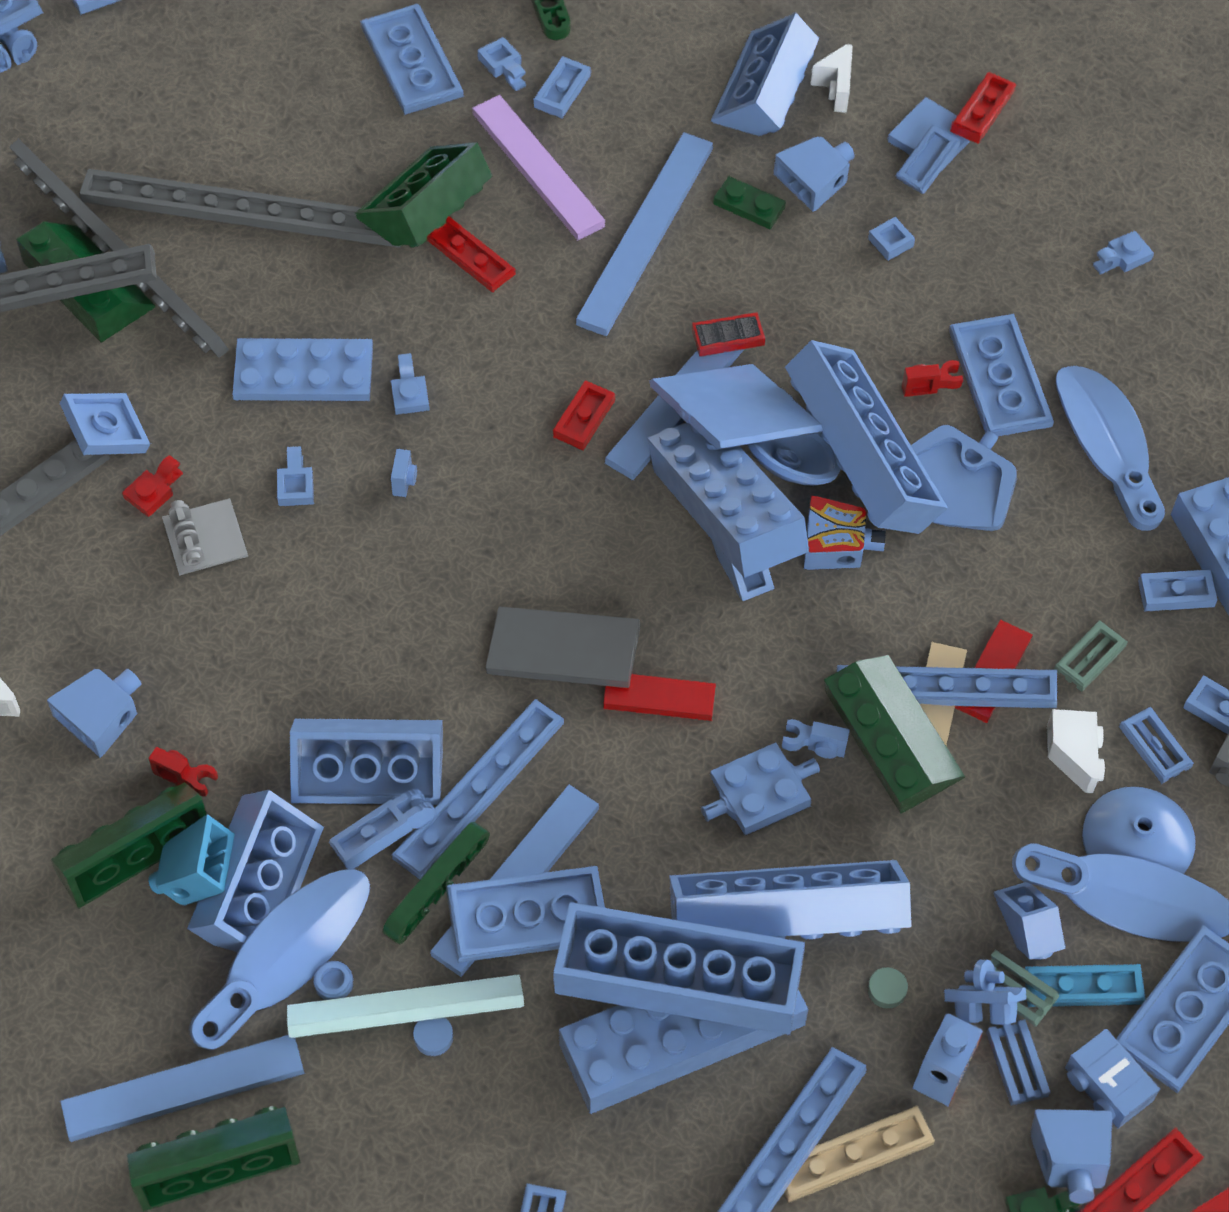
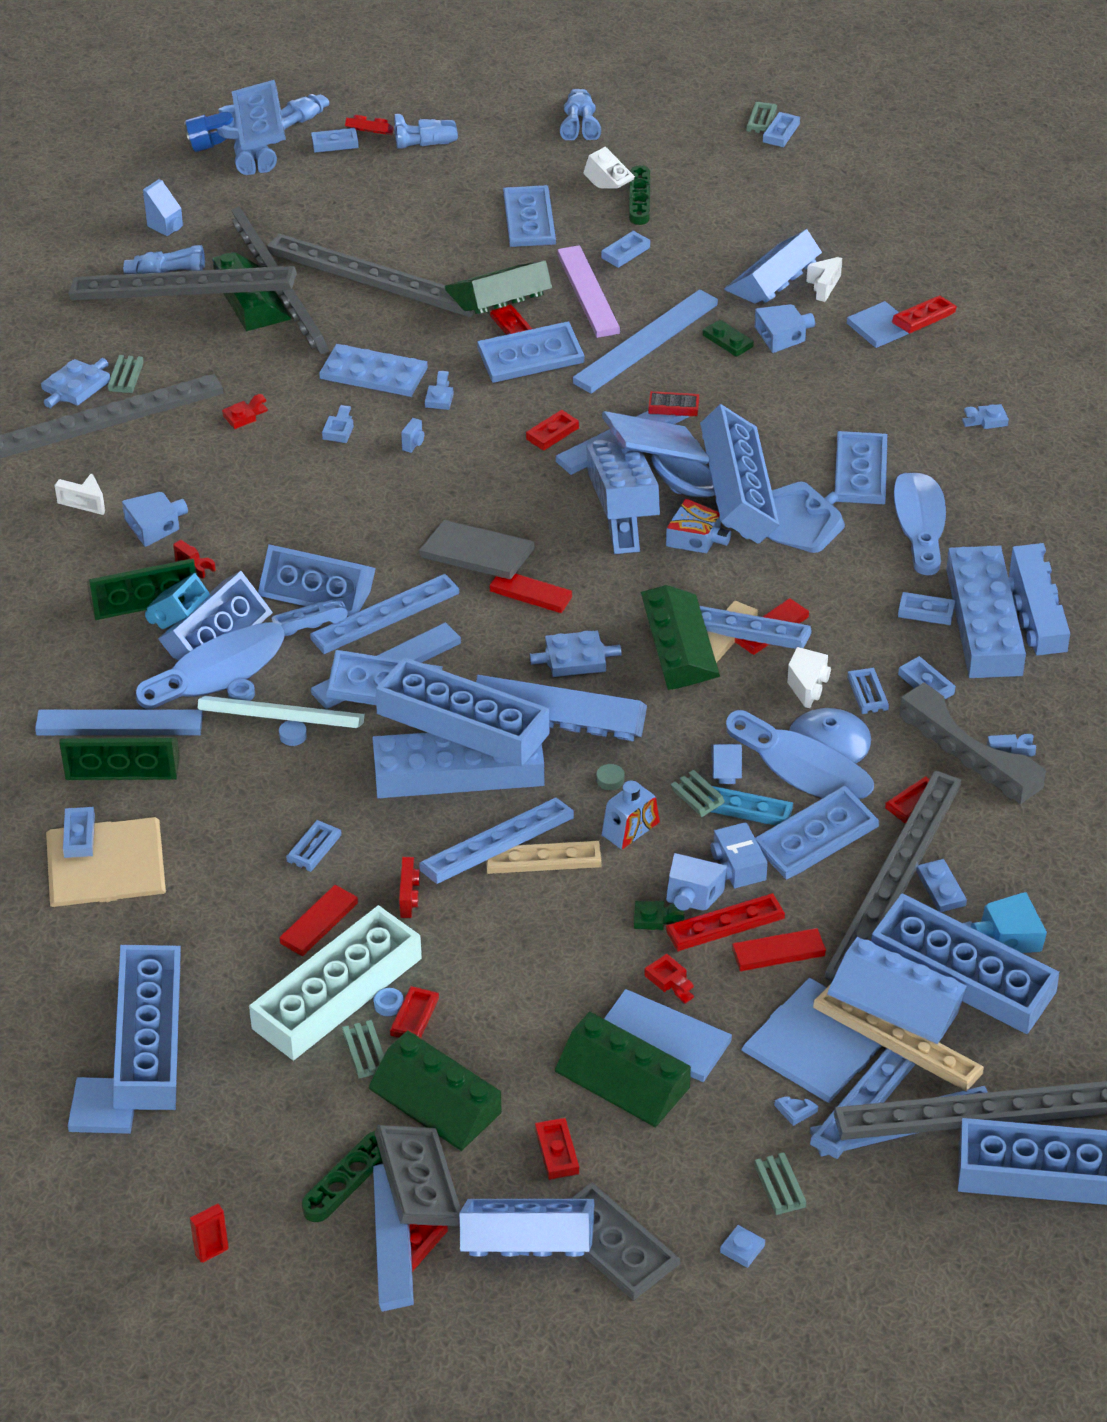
camera: 20 degrees right, 15 degrees down
(104, 423) = (226, 369): medium blue plate -> none
(203, 535) = (265, 444): light grey hinge -> none
(435, 881) = (305, 664): dark green beam -> none
(502, 58) = (592, 226): medium blue plate -> none
(505, 291) = (530, 352): none -> medium blue plate
(822, 738) = (630, 633): medium blue plate -> none
(891, 238) = (819, 375): medium blue plate -> none
(928, 159) = (867, 335): medium blue tile -> none
(929, 378) = (804, 457): red plate -> none
(969, 998) = (672, 785): medium blue hips -> none
(1003, 1066) = (682, 819): medium blue tile -> none
(1072, 675) = (848, 635): sand green tile -> none

